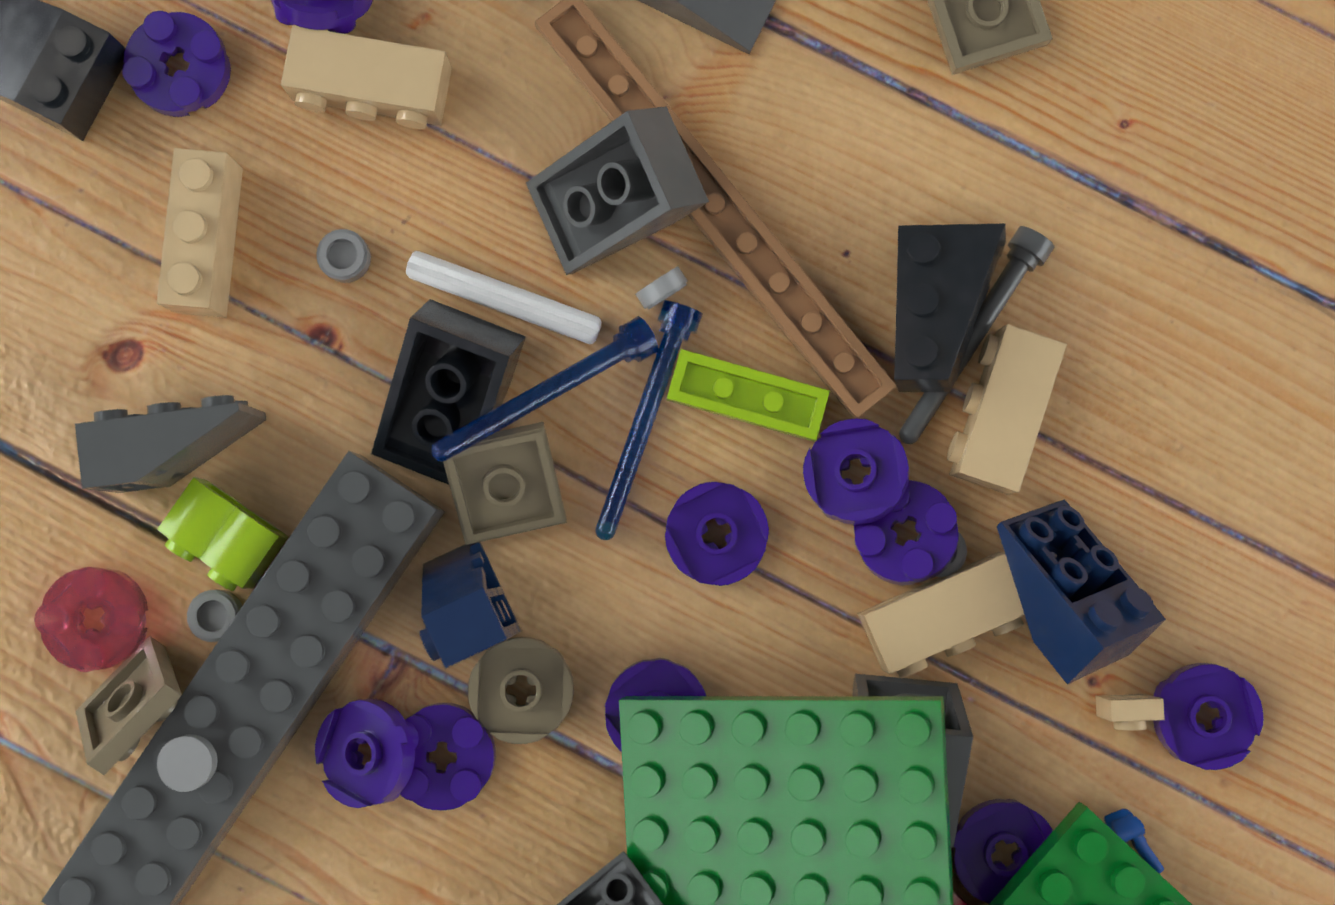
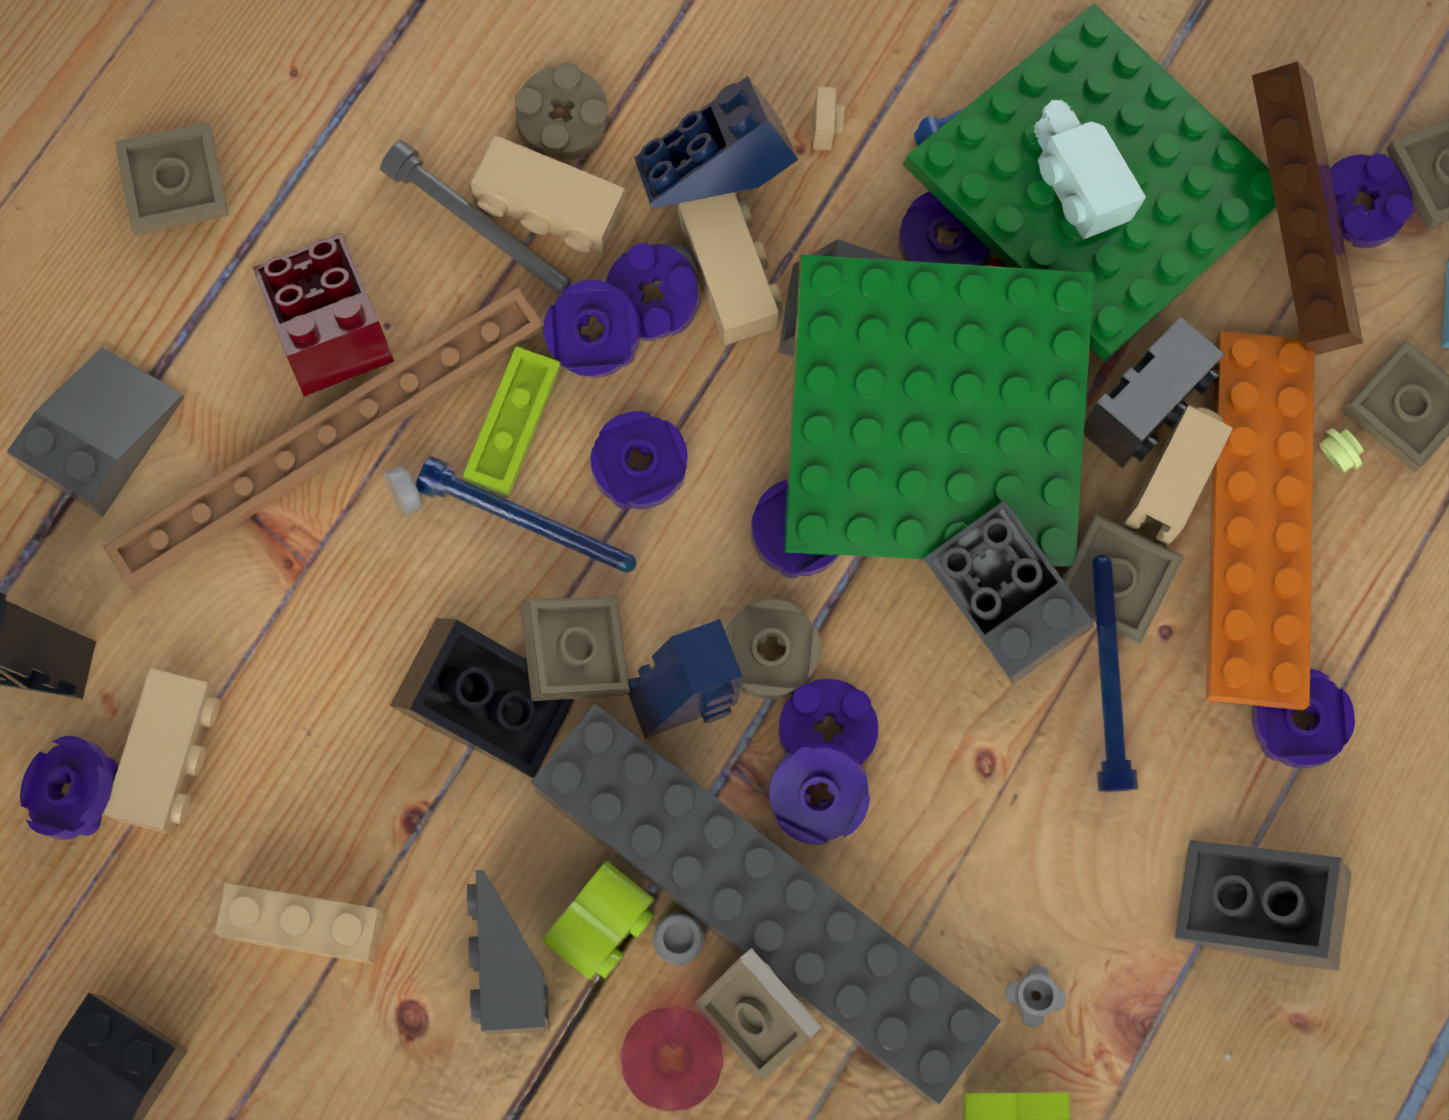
camera: 85 degrees left, 10 degrees down
(163, 37) = (92, 953): dark purple plate -> none
(187, 762) = (815, 946): light grey tile -> none
(343, 256) = (336, 791): light grey tile -> none
(503, 297) = (394, 640): white axle -> none
(617, 188) = (305, 521): dark grey slope -> none
(632, 342) = (451, 519): clear blue piece -> none
(848, 183) = (323, 314): none -> dark red slope
(939, 296) = (440, 241): black wedge -> none
(1137, 415) = (567, 88): none -> dark tan plate
(1232, 731) = (852, 37): dark purple plate -> none

